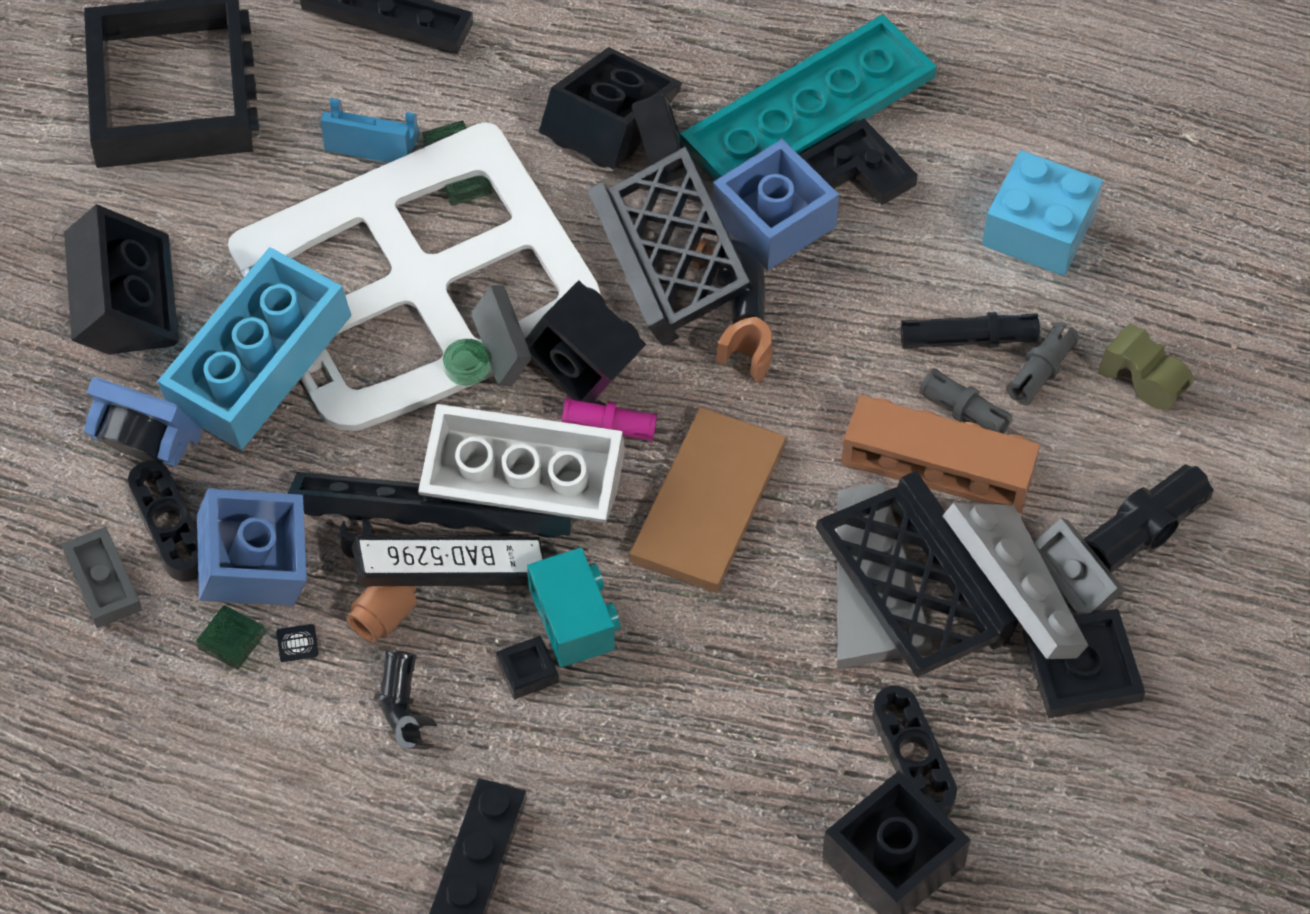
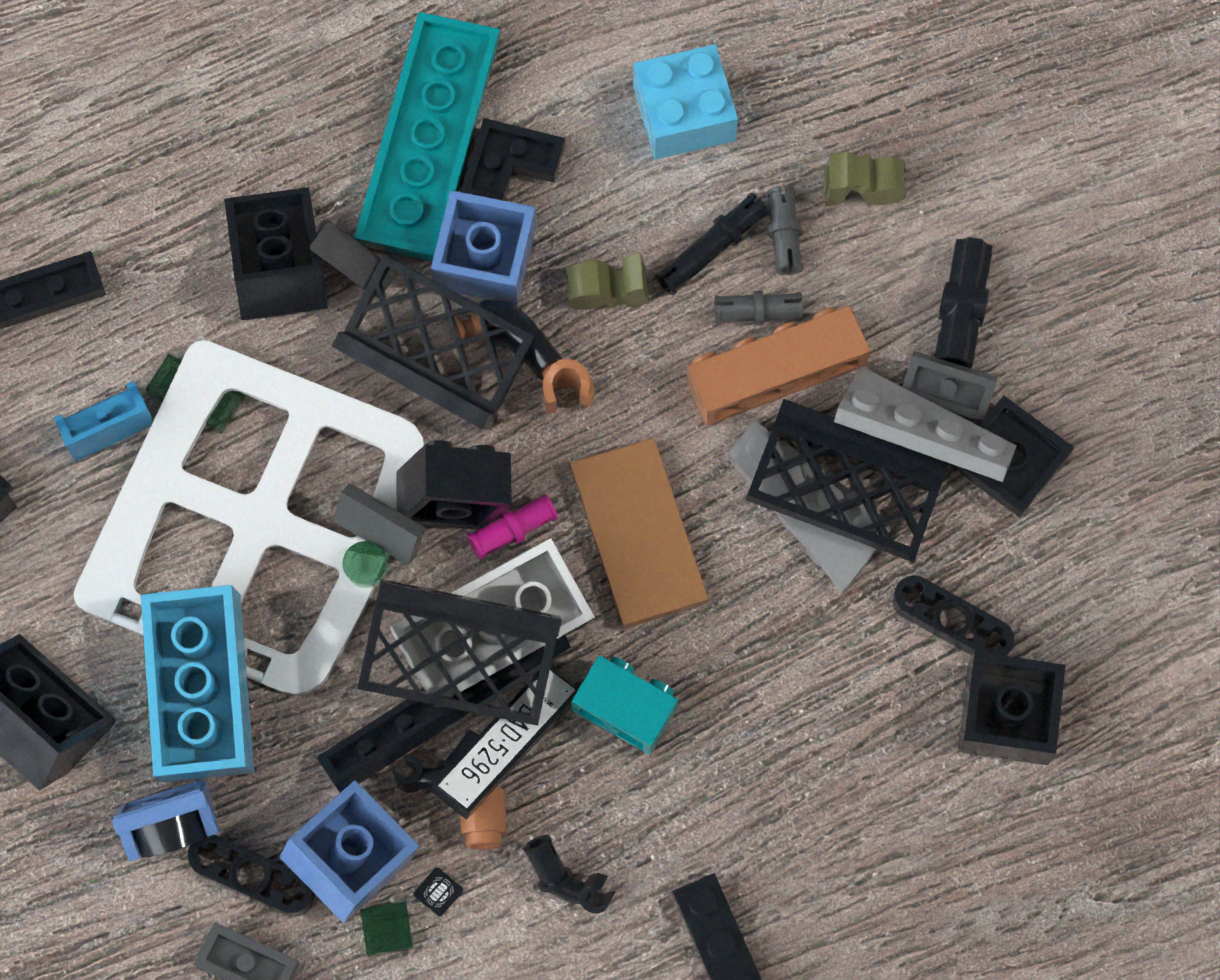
camera: 40 degrees left, 15 degrees up
(499, 429) = (466, 612): none -> black fence
(527, 667) = (626, 774): black tile -> none
(845, 295) = (598, 284): none -> olive leg

